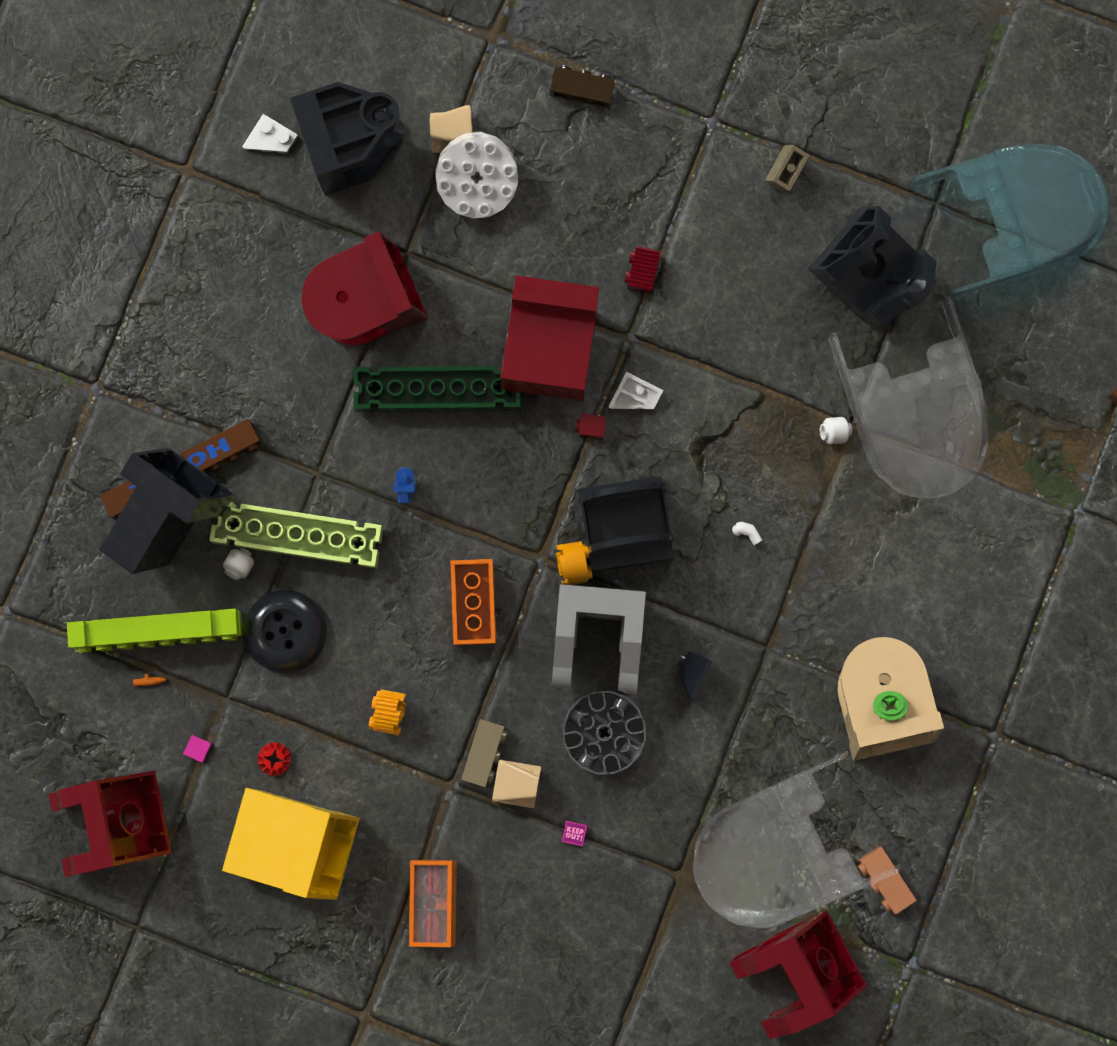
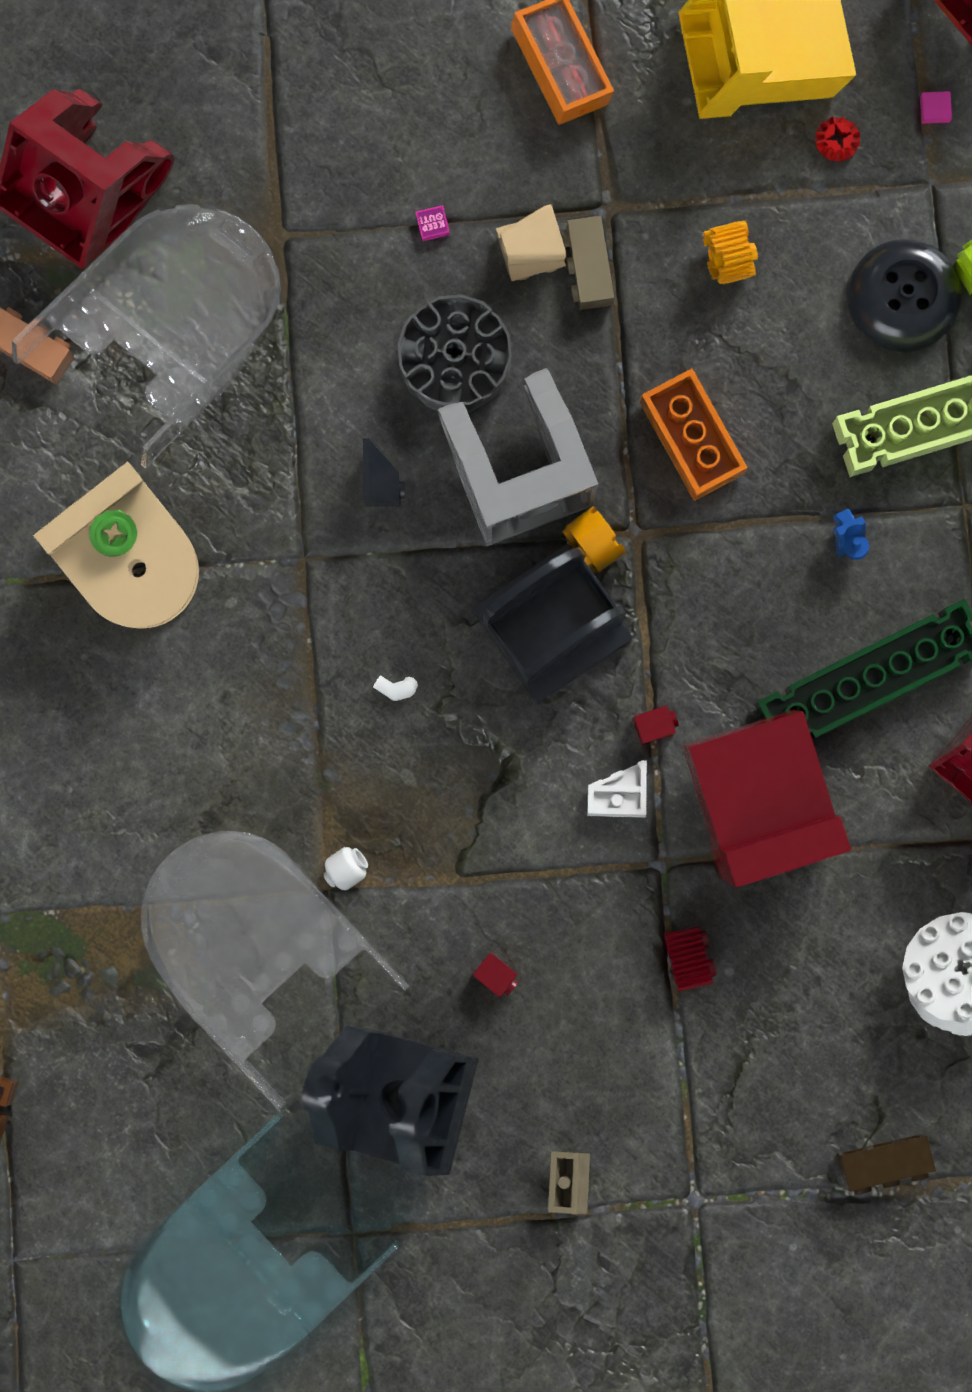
camera: 150 degrees right, 0 degrees up
(771, 317) = (496, 975): none -> dark red brick

